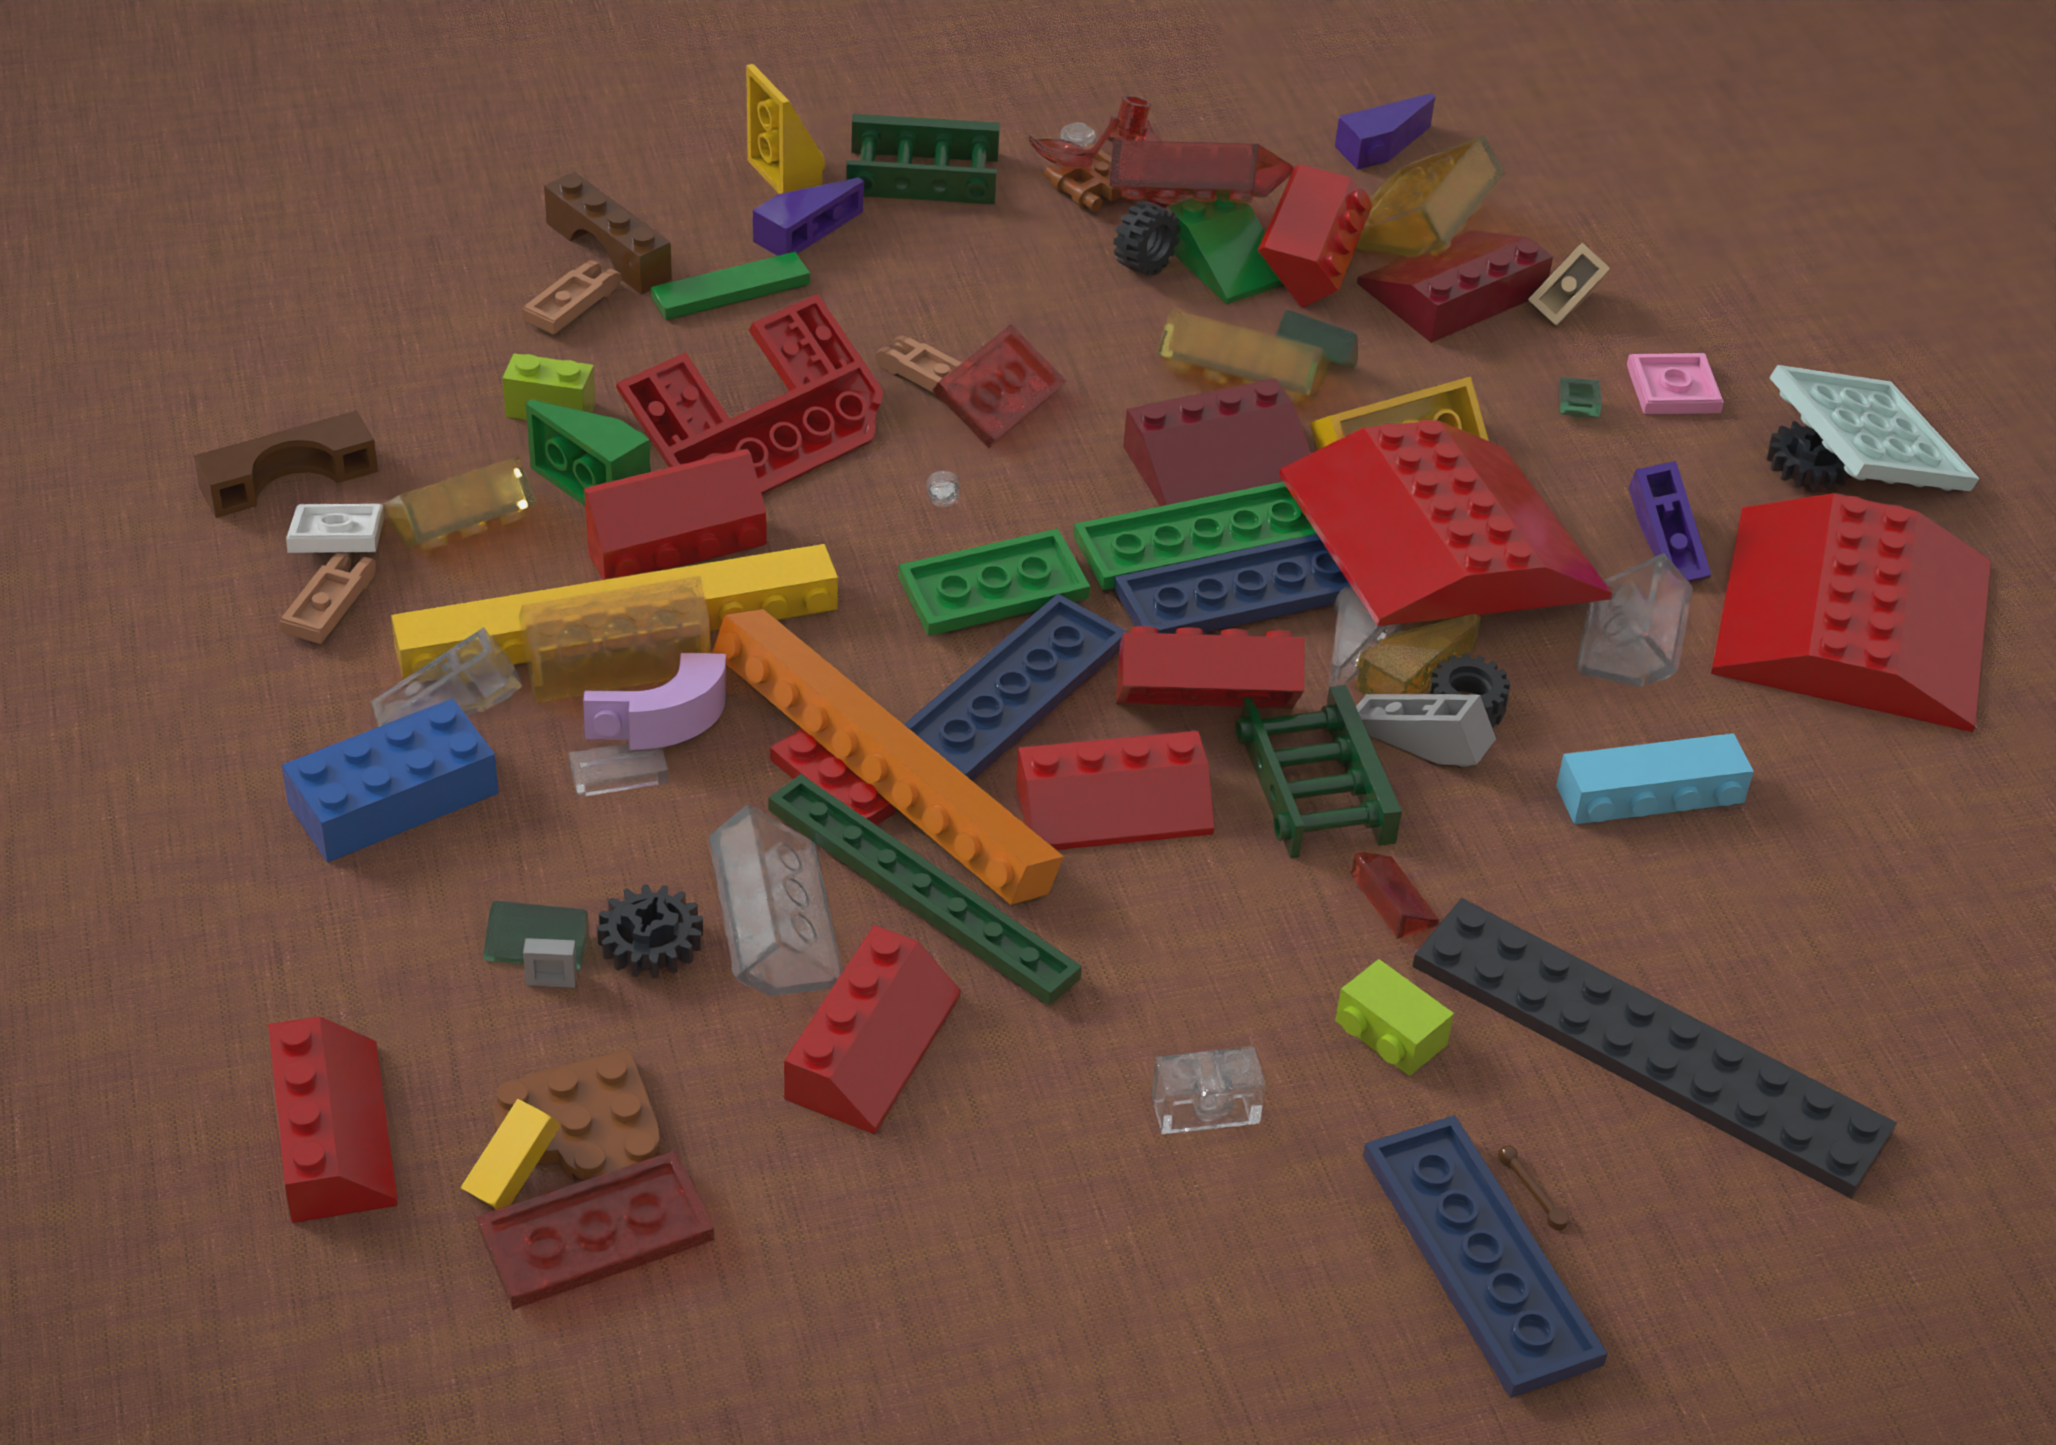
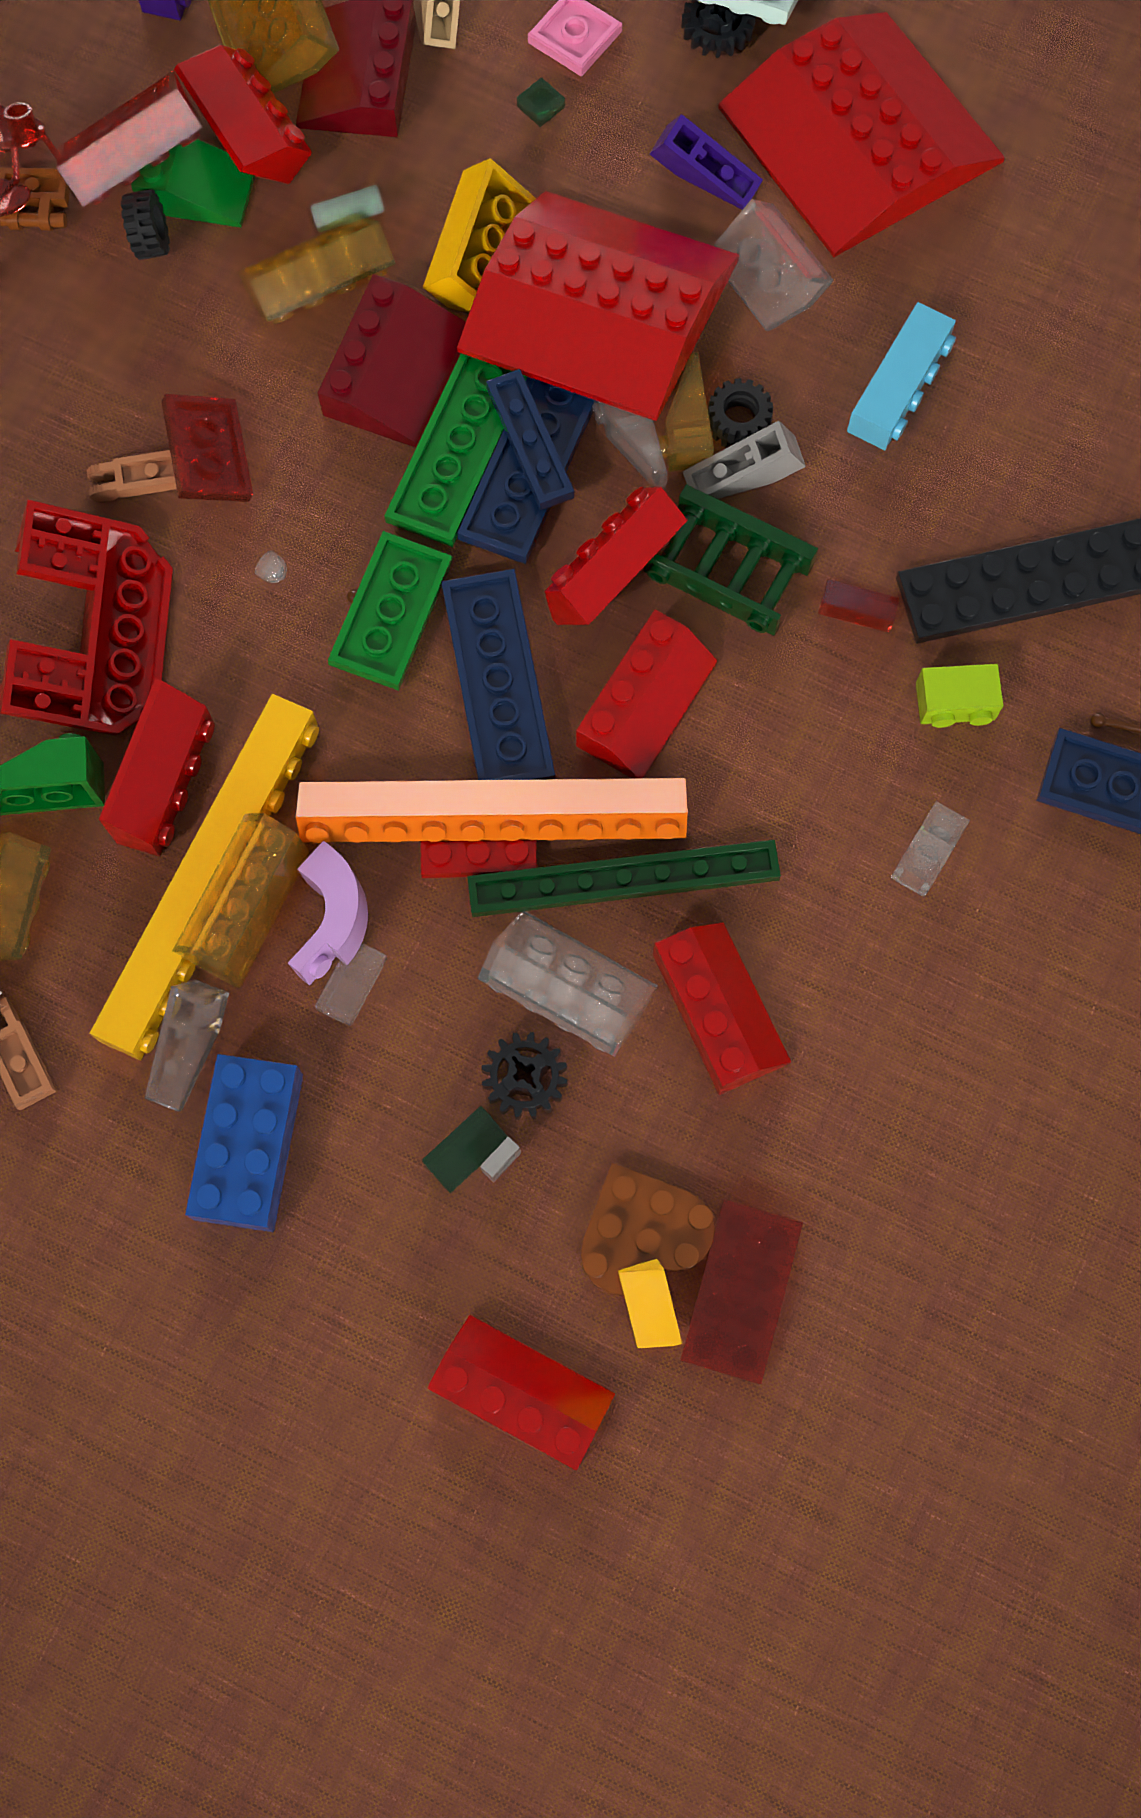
camera: 45 degrees left, 30 degrees up
(1255, 562) = (530, 439): none -> dark blue plate

